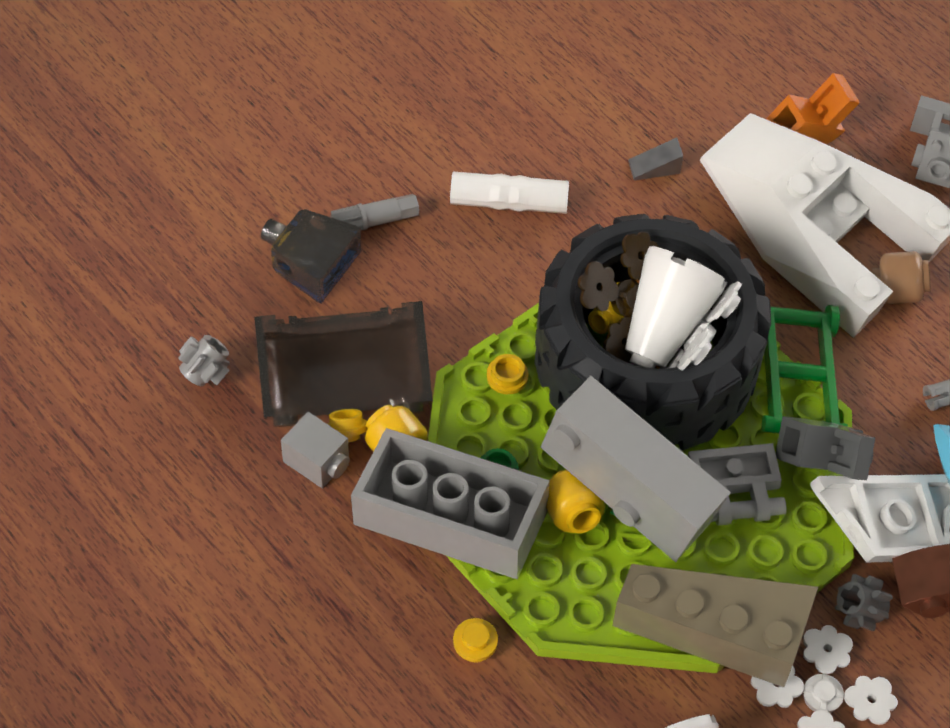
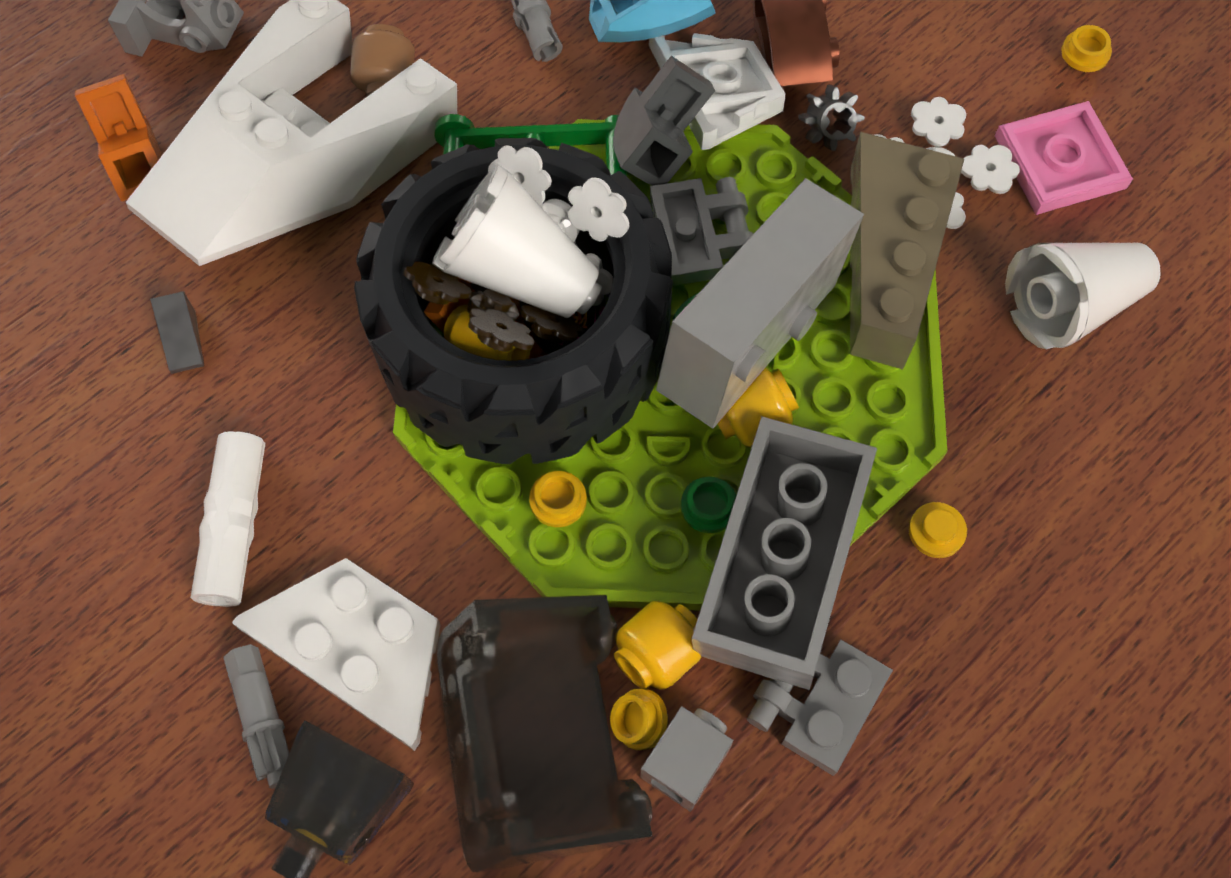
camera: 90 degrees left, 10 degrees up
(346, 555) = (832, 713): none -> light grey plate
(419, 265) = (354, 642): none -> white wing

